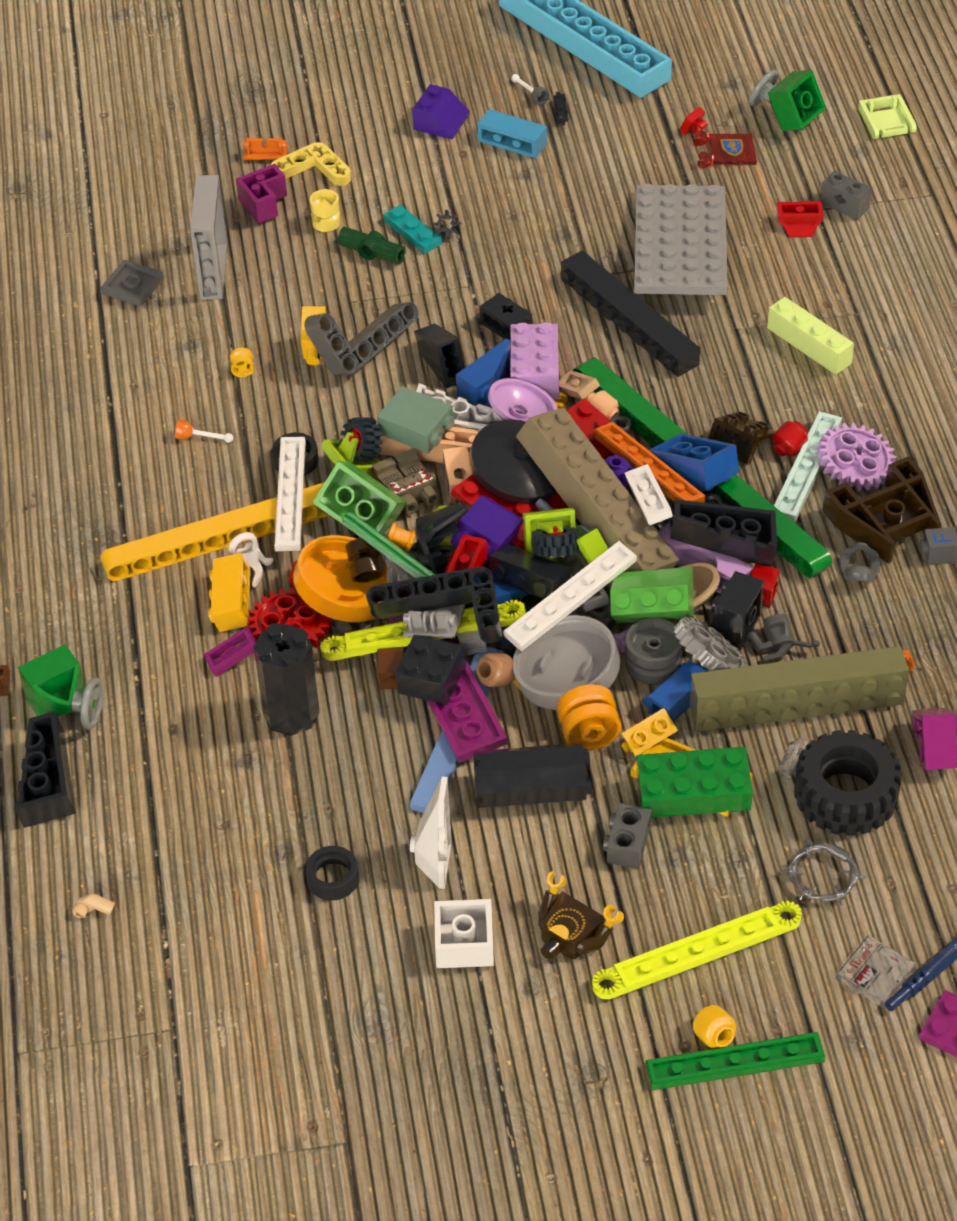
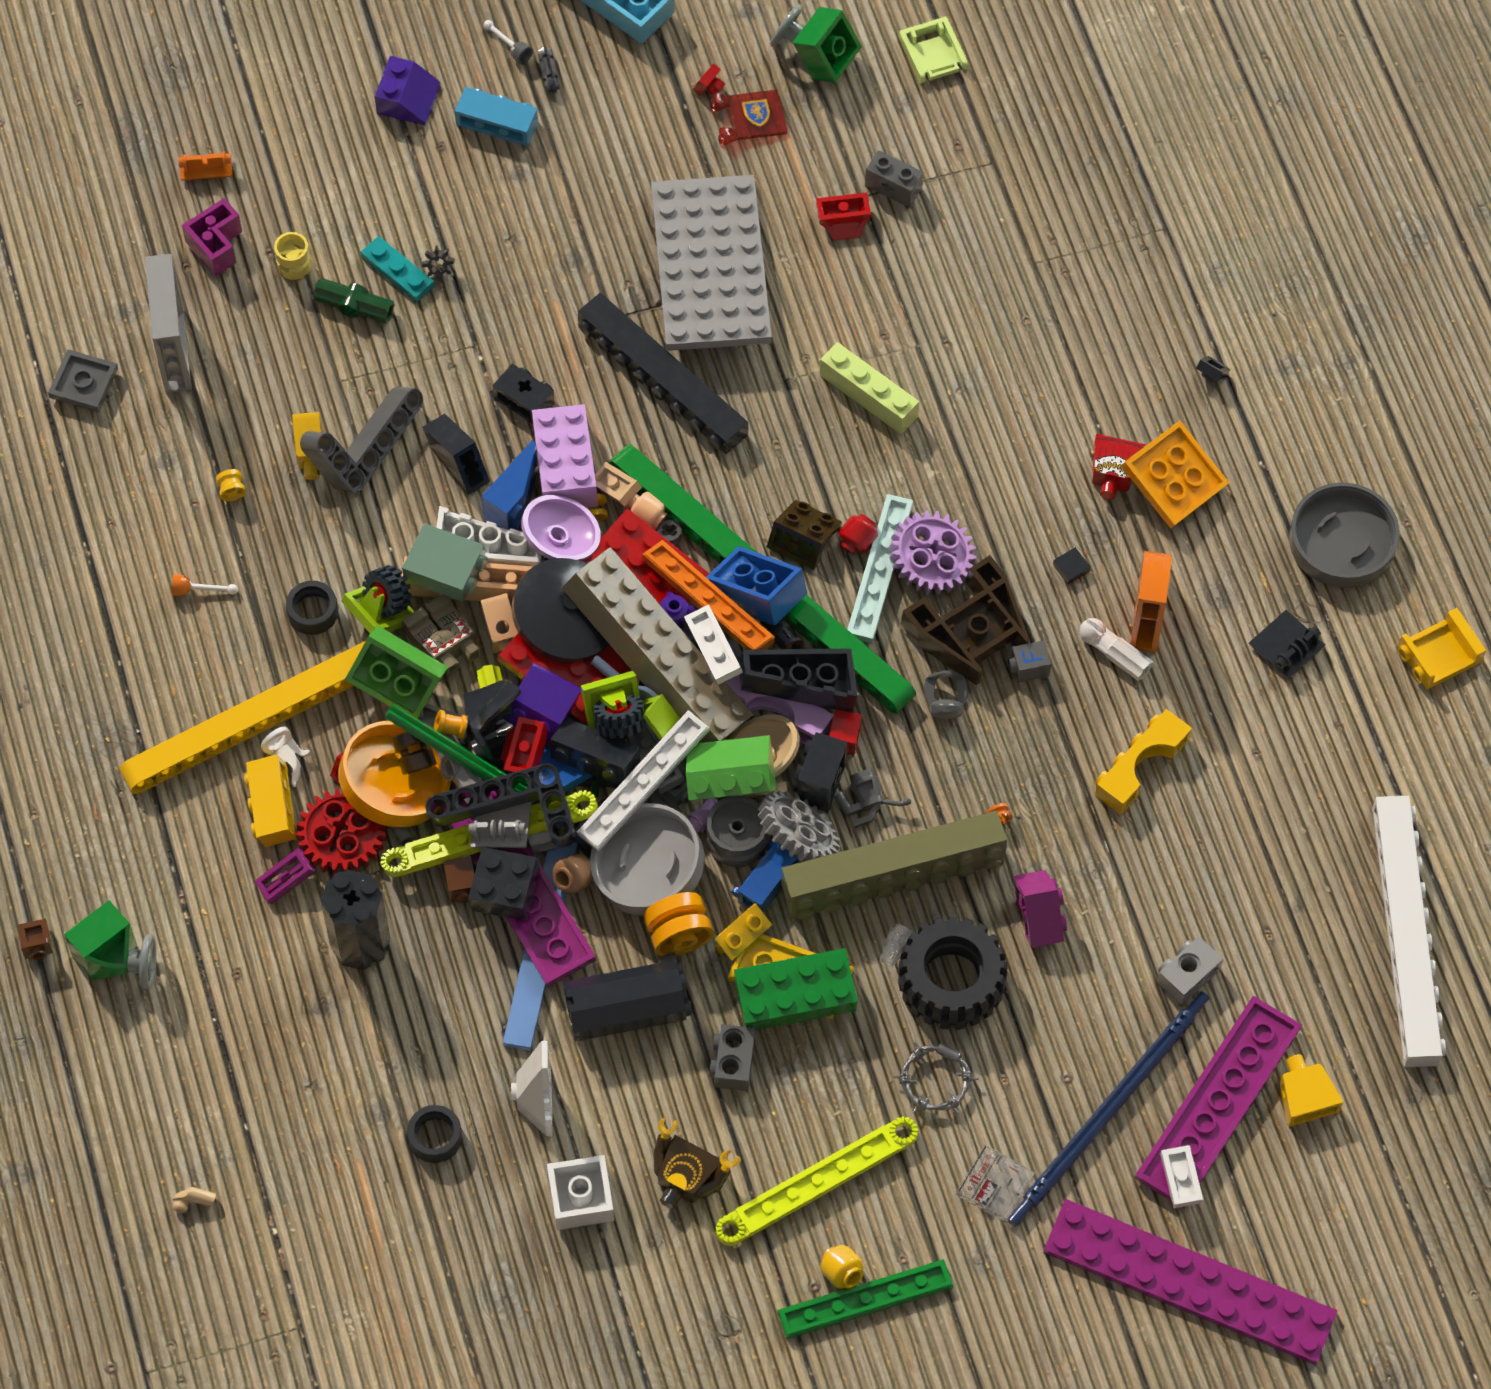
camera: 10 degrees left, 15 degrees up
(46, 776) = (116, 1058): black wedge -> none
(290, 494) = (317, 668): white tile -> none
(312, 157) = (266, 173): light yellow beam -> none

